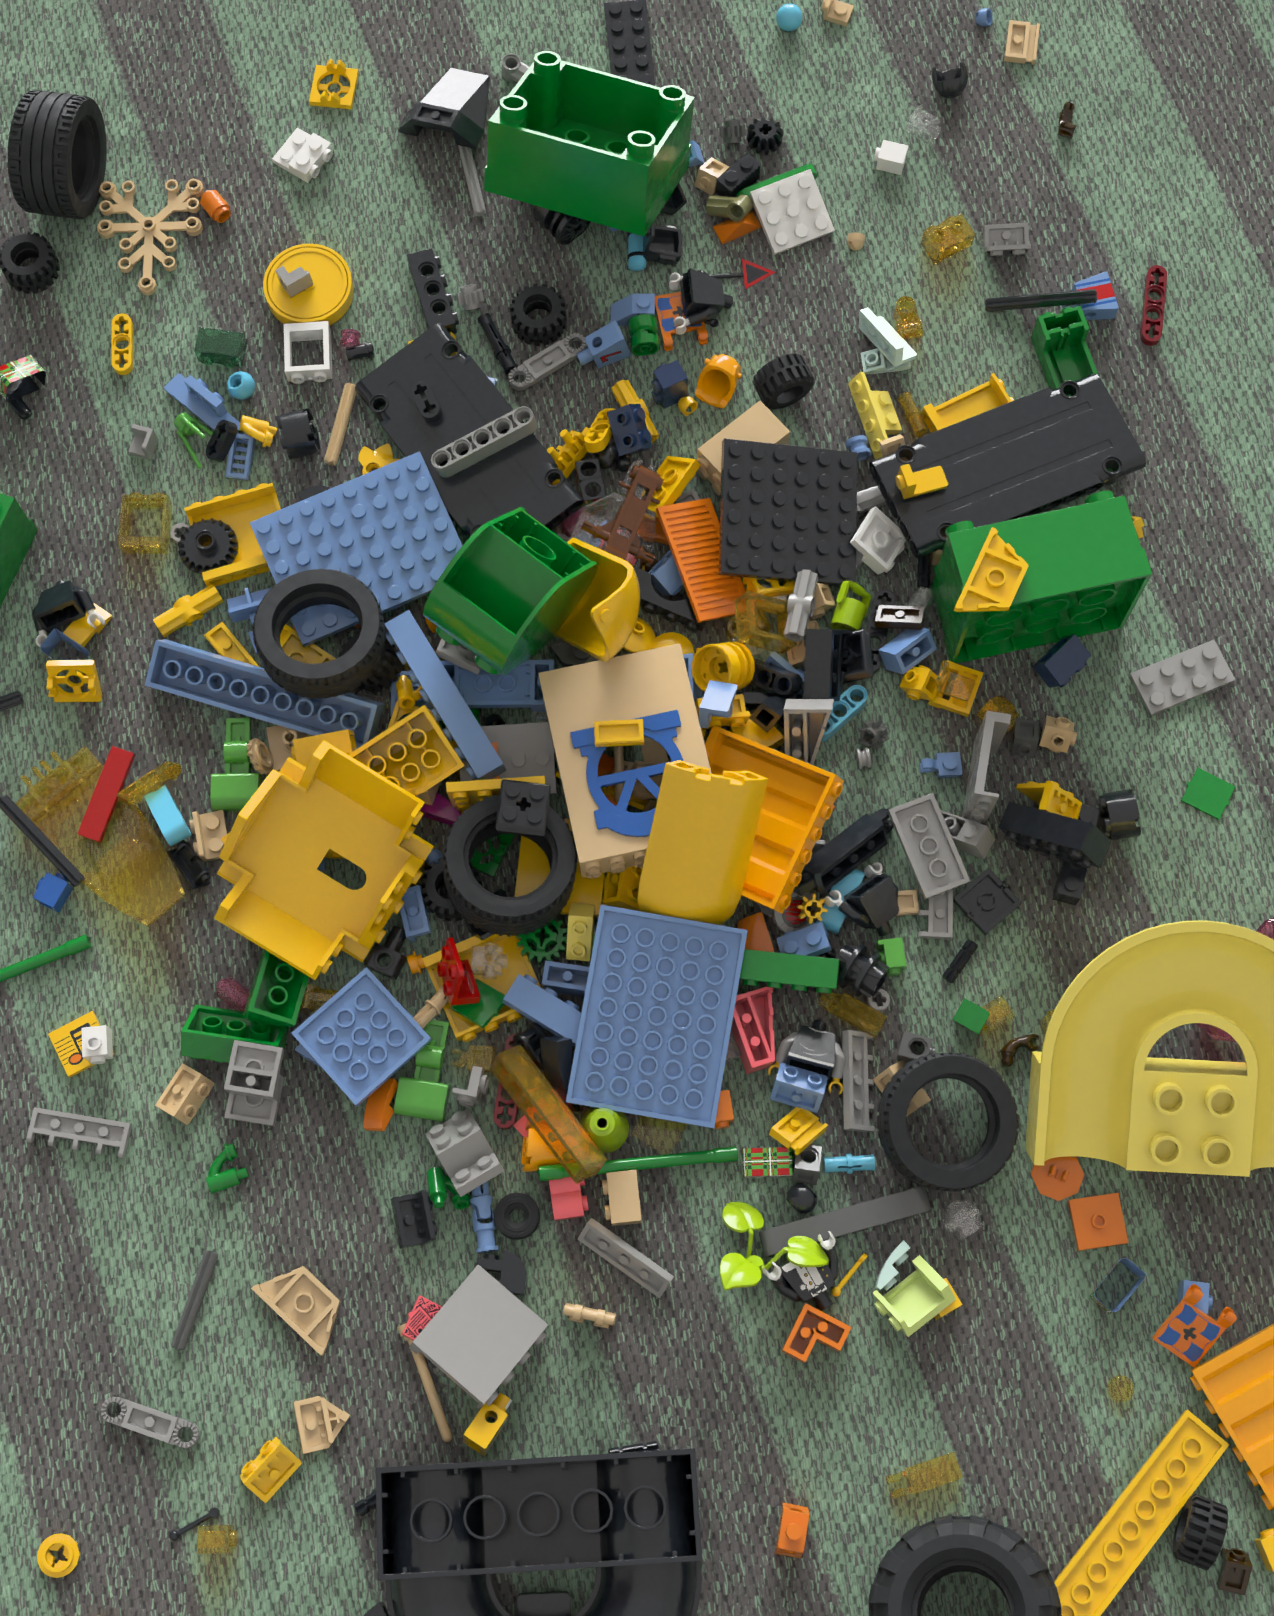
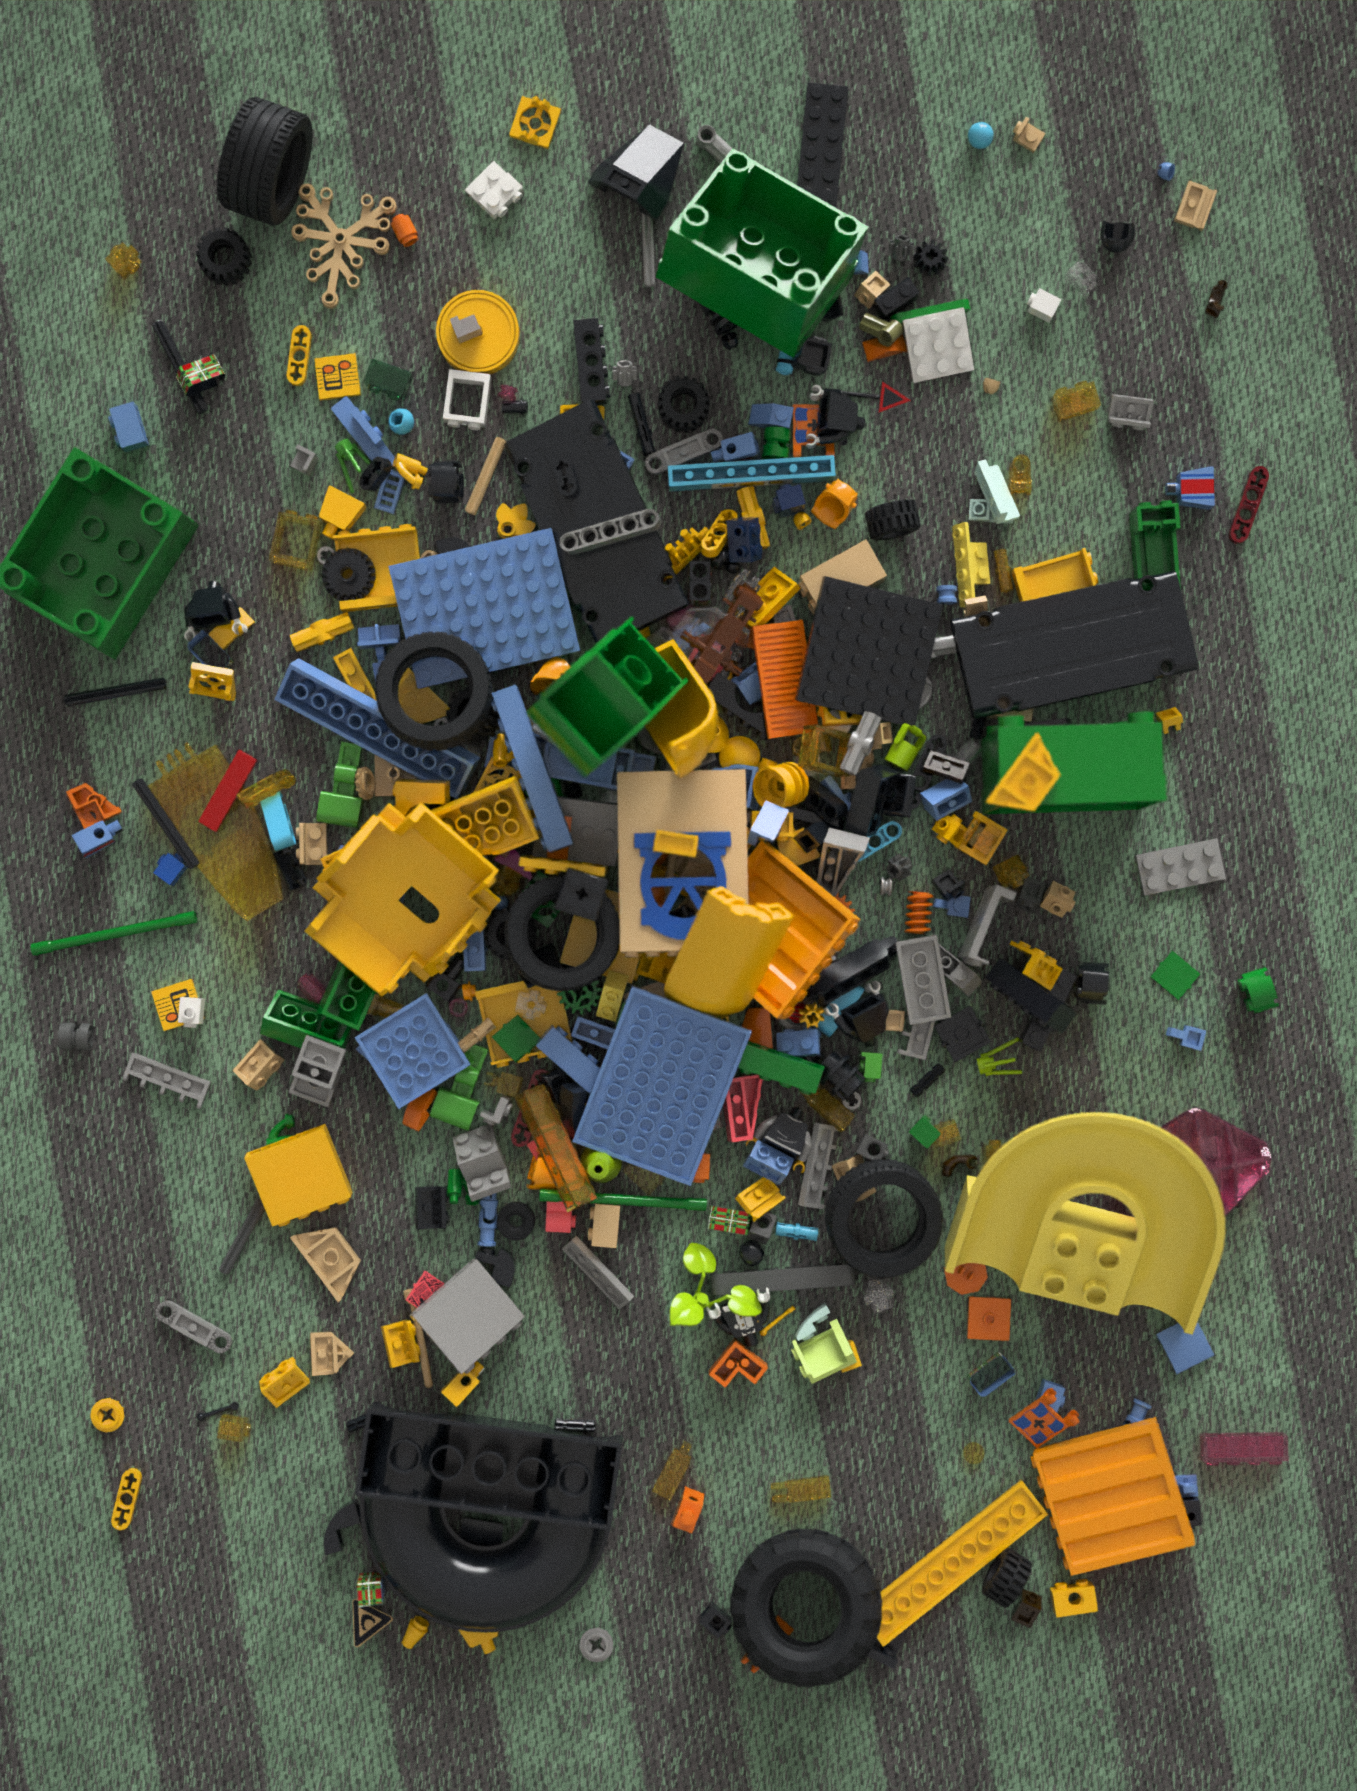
camera: 10 degrees right, 15 degrees up
(166, 357) = (337, 377): none -> yellow tile
(189, 484) = (339, 511): none -> yellow torso
(250, 1211) = (298, 1175): none -> yellow brick
(405, 1391) = (401, 1343): none -> yellow bracket
(407, 976) = (459, 1001): none -> clear pink bush
(435, 829) = (511, 880): none -> clear yellow brick
(457, 976) = (501, 1015): red bracket -> none
(574, 248) = (729, 340): none -> black hinge
(578, 1313) = (560, 1314): tan plate -> none
(627, 364) = (751, 473): none -> medium azure brick
(764, 1485) = (673, 1471): none -> clear yellow hinge
(878, 541) = (943, 691): white plate -> none
(905, 778) = (918, 913): none -> orange piece
(920, 482) = (991, 652): yellow bracket -> none
(933, 743) = (949, 885): none -> black bracket
(1023, 929) = (987, 1065): none -> lime plant
(1041, 300) = (1146, 482): black axle -> none
(1062, 661) = (1078, 834): dark blue brick -> none
(1243, 855) = (1189, 1037): none -> medium blue plate

